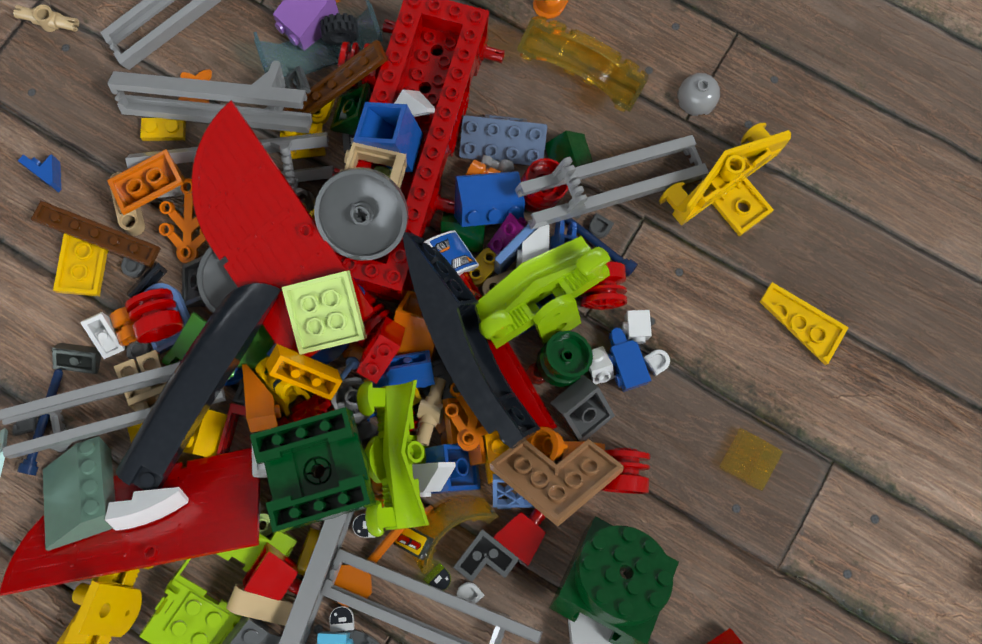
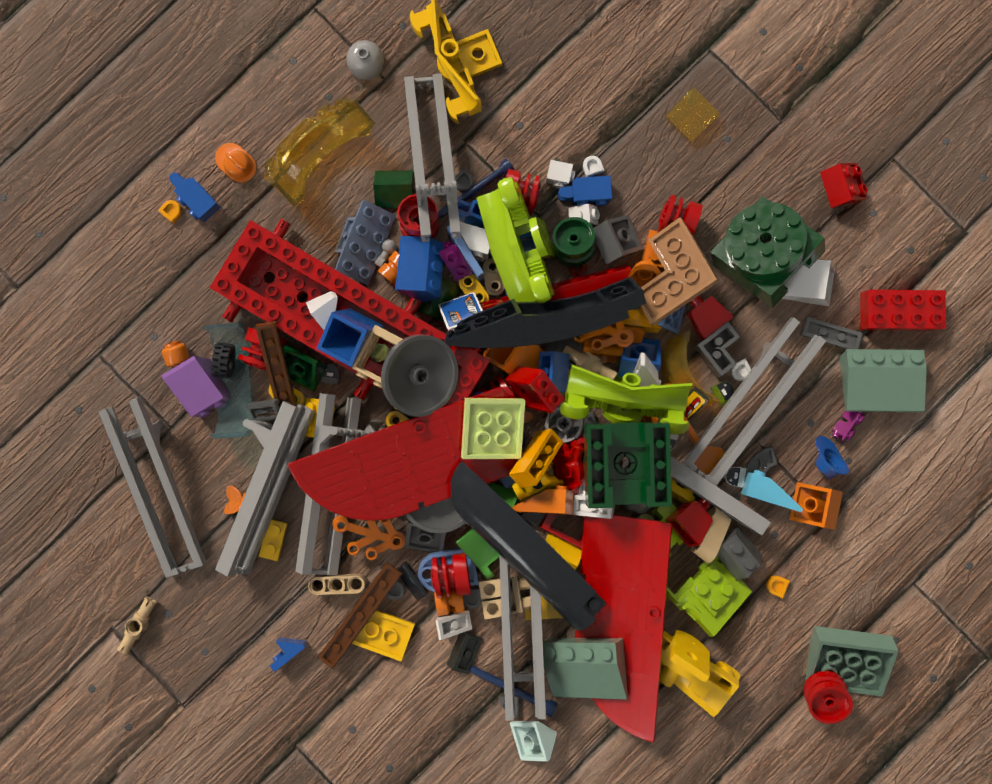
camera: 70 degrees left, 10 degrees up
(144, 507) = (615, 611): white slope -> none
(145, 181) = (330, 559): orange slope -> none
(352, 363) = (529, 420): medium blue pin -> none
(808, 324) = (595, 31): yellow wing -> none

